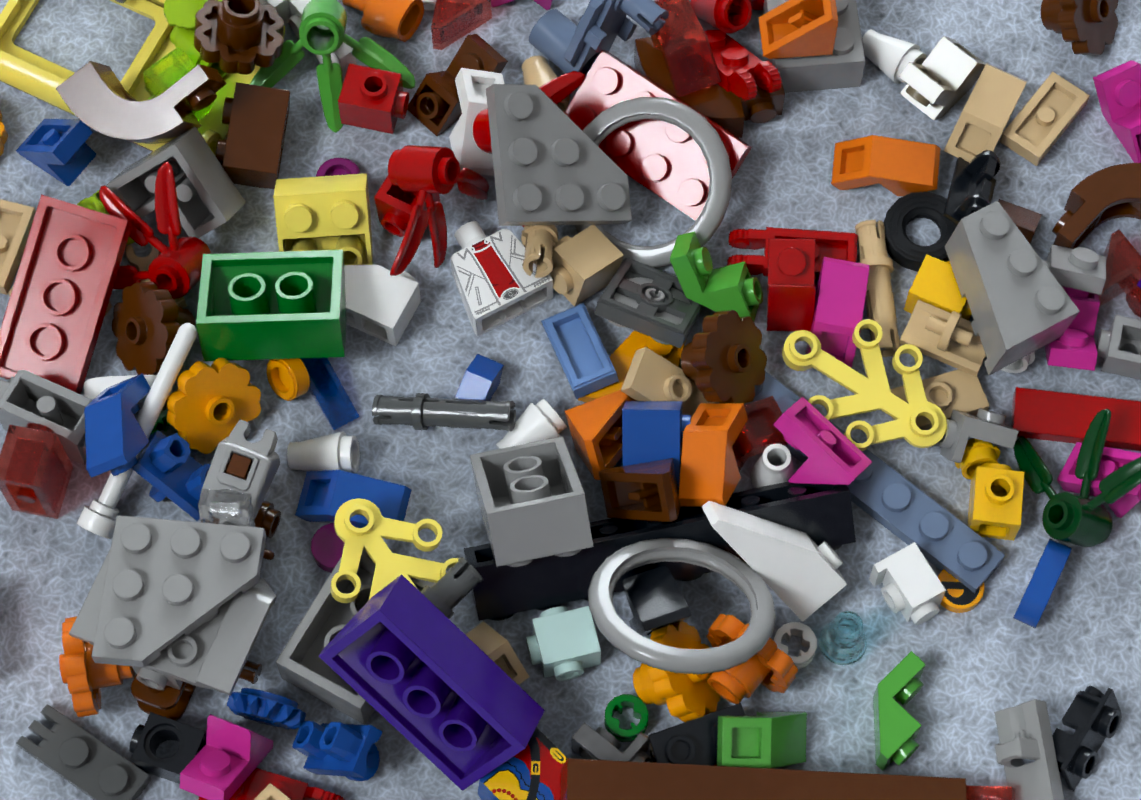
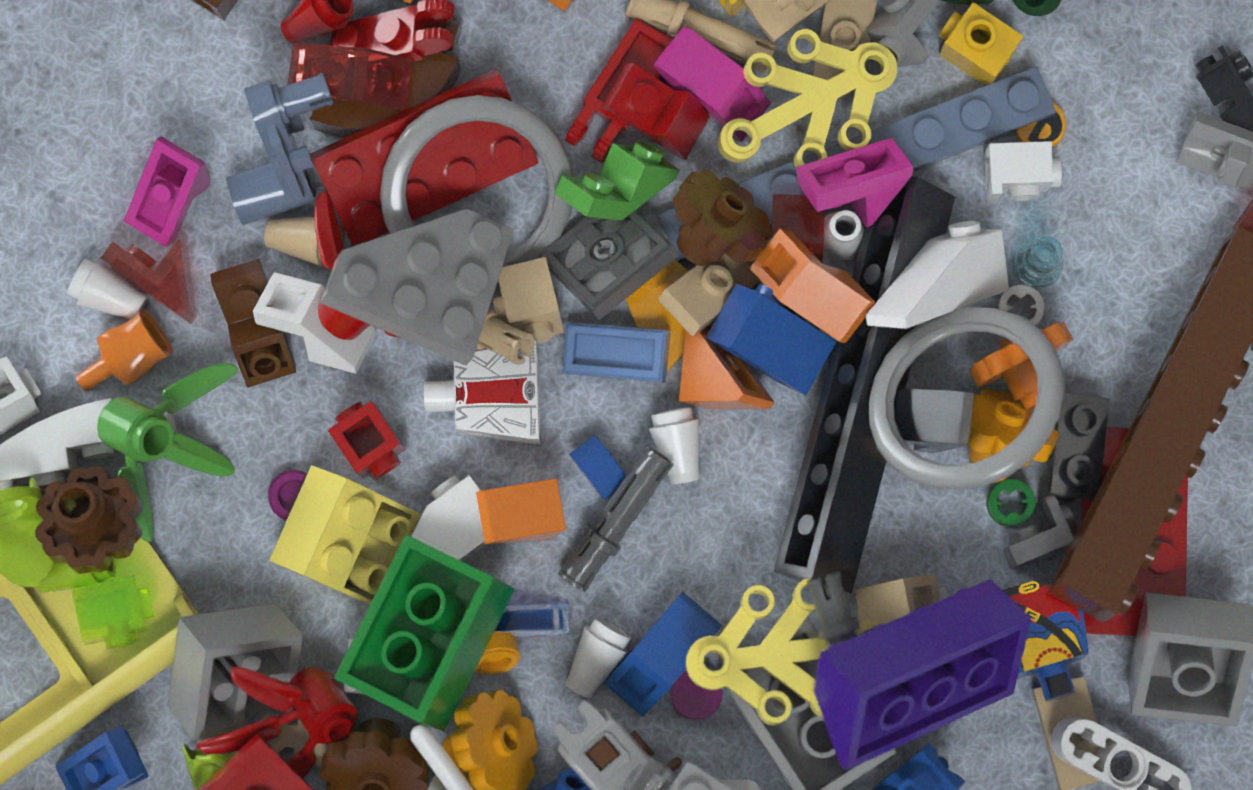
camera: 60 degrees left, 15 degrees up
(108, 108) = (122, 689): arch -> none
(255, 135) = (204, 558): reddish brown brick -> none
(372, 98) = (229, 435): red brick -> none
(407, 332) = (521, 512): none -> orange slope
(428, 172) = (377, 403): red plant -> none
(531, 502) = (770, 483): light grey brick -> none
(564, 642) = (911, 523): light aqua brick -> none
(641, 491) = (816, 372): reddish brown slope -> none
(762, 740) = (1113, 392): bright green slope -> none
(892, 723) = (1150, 264): bright green slope -> none
(977, 454) = (929, 33): yellow plate -> none
(1042, 583) = (1080, 47): blue beam -> none

